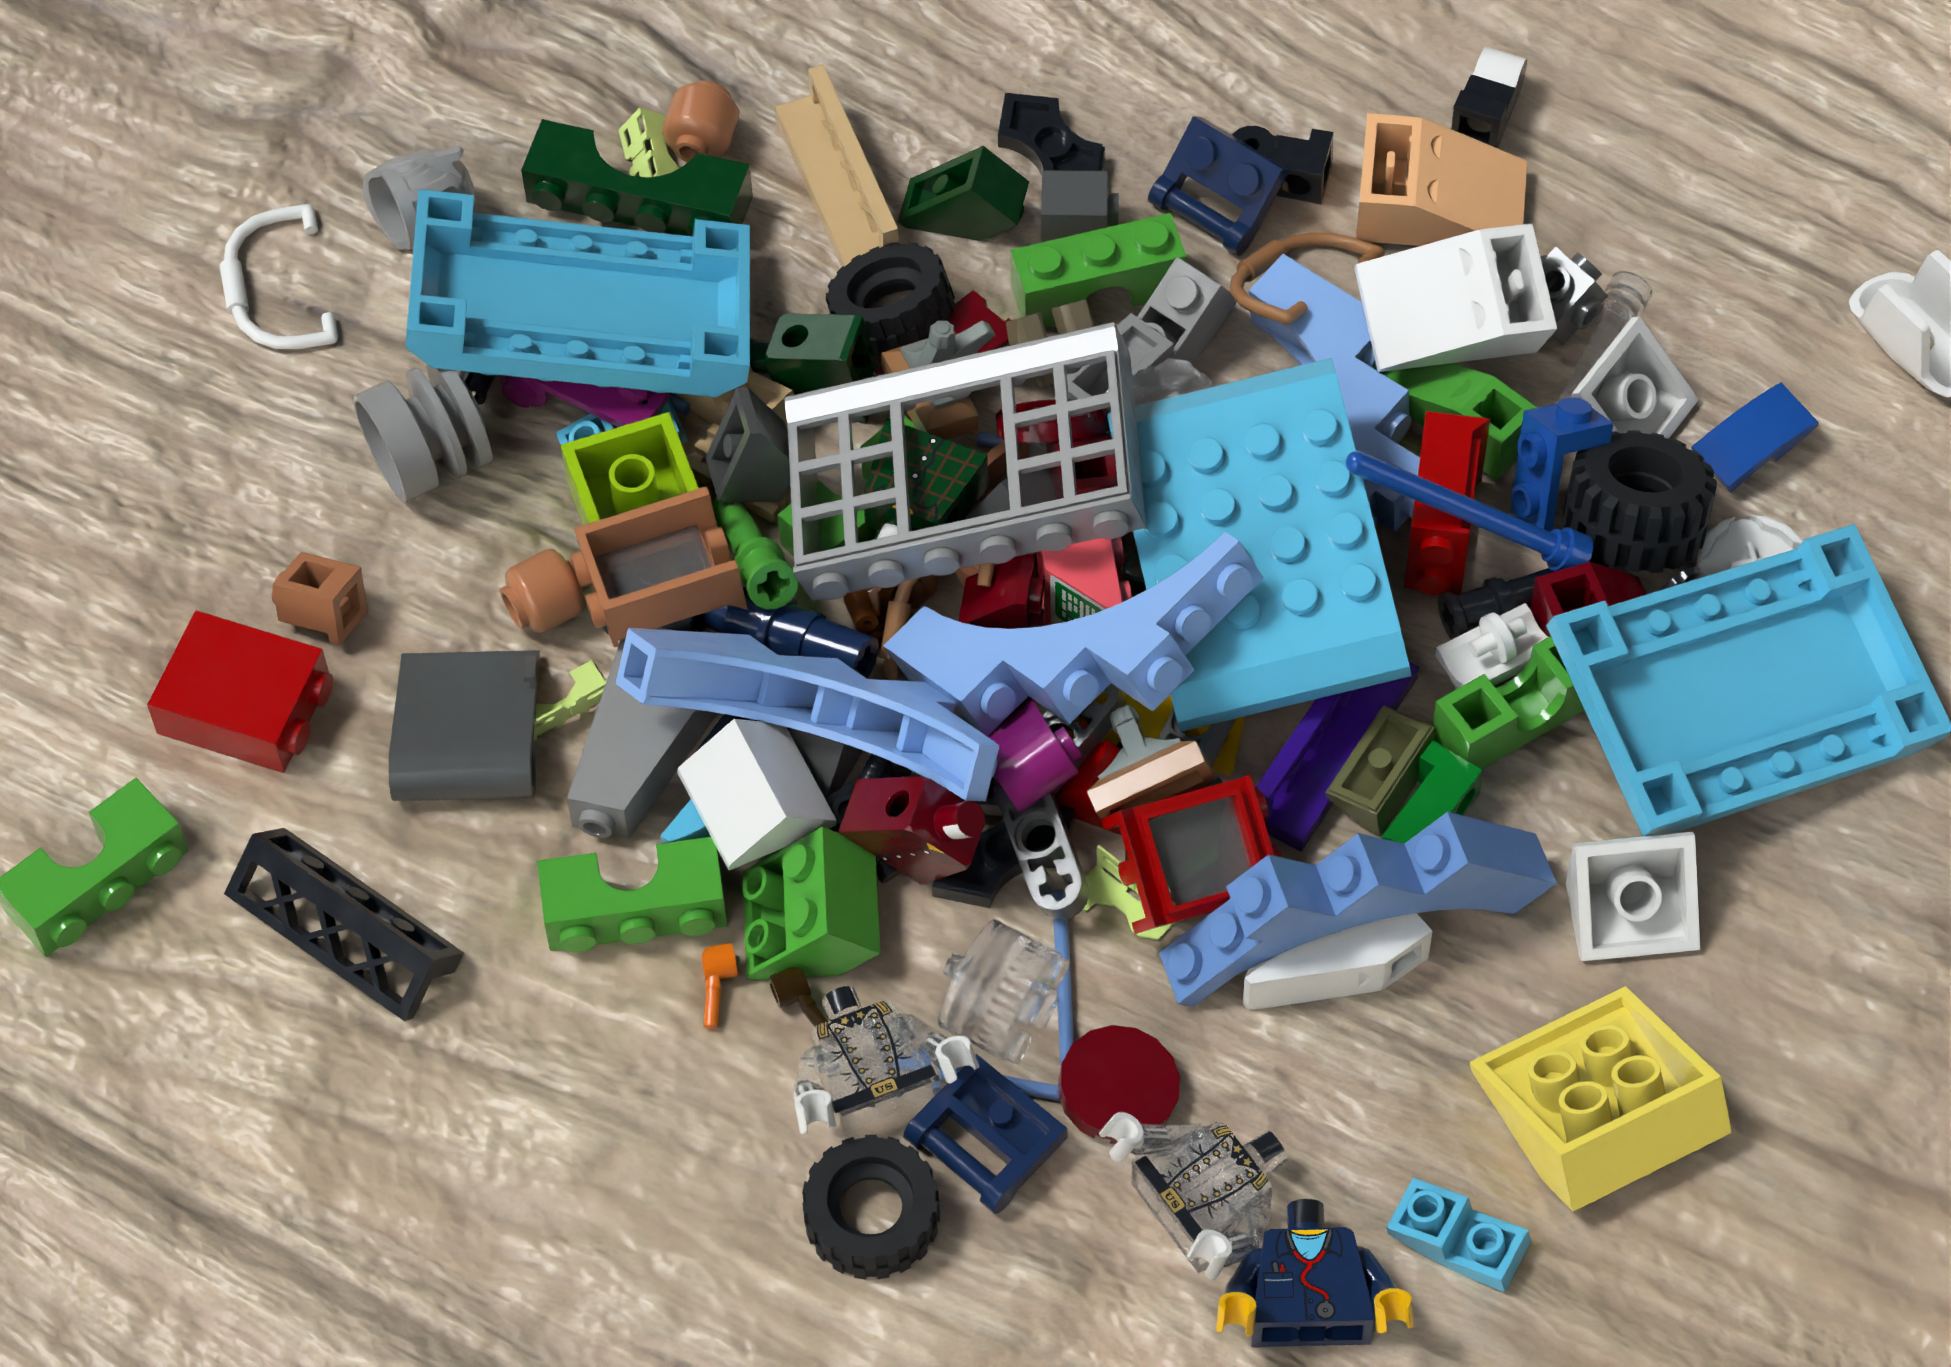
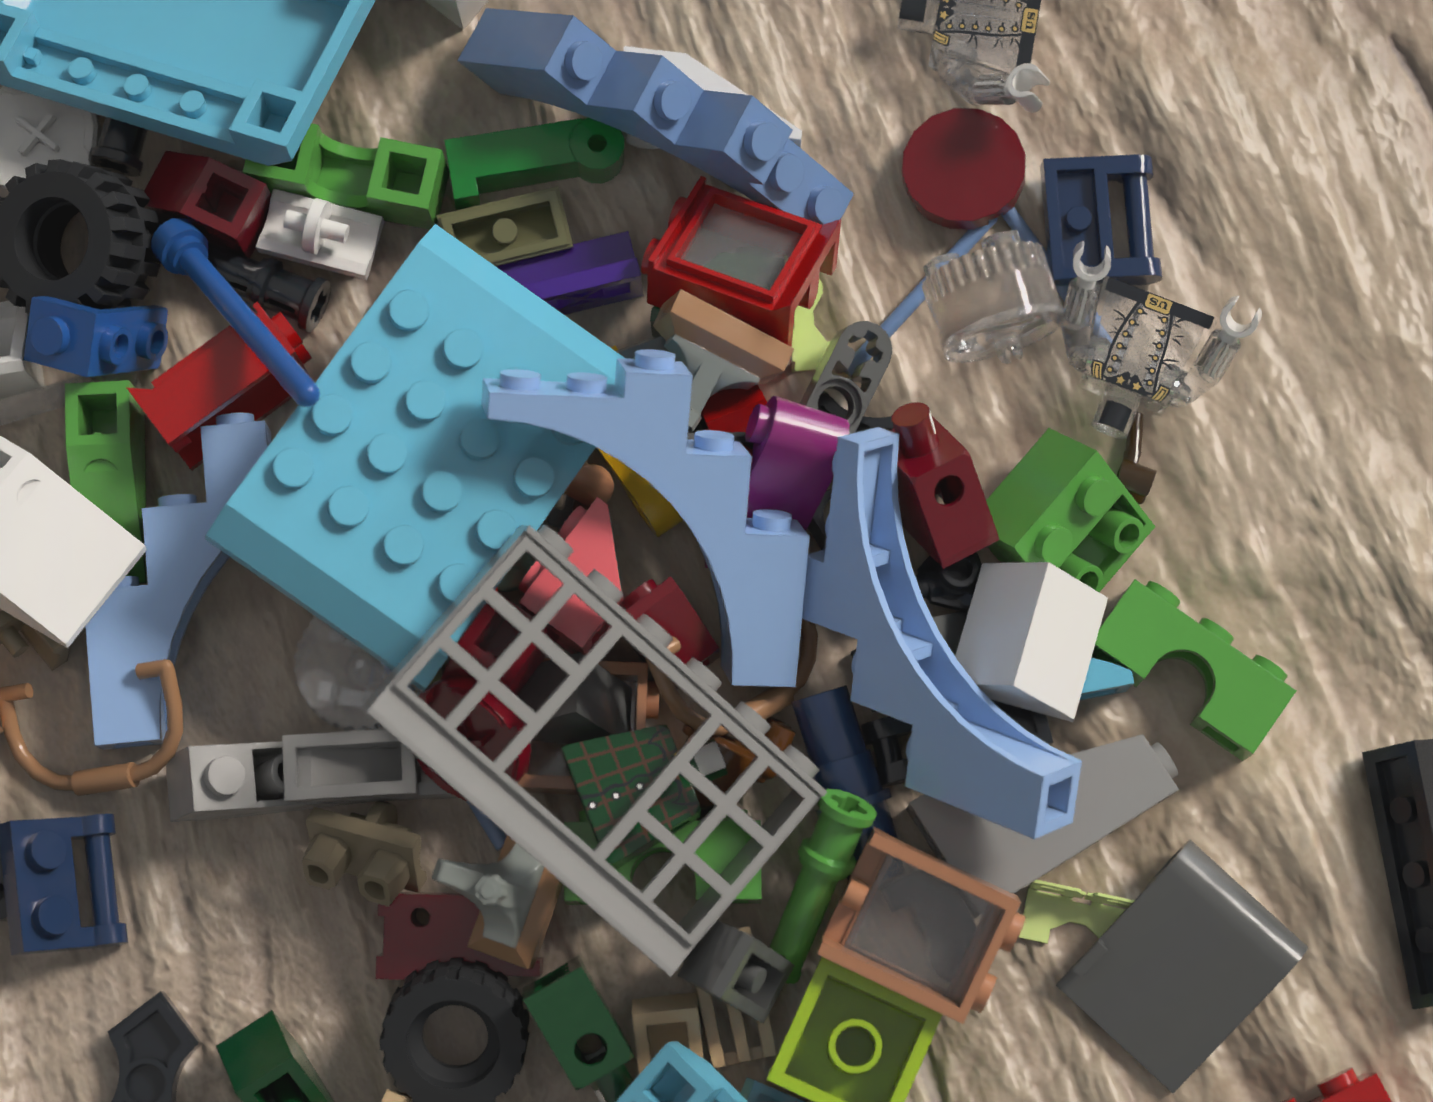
camera: 135 degrees left, 20 degrees up
(542, 592) = (1014, 1028): nougat head -> none
(718, 964) = (1171, 552): orange hand -> none
(871, 1160) = (1250, 194): black tyre -> none
(1076, 203) = (200, 983): dark grey brick -> none
(1077, 265) = (251, 896): bright green arch -> none

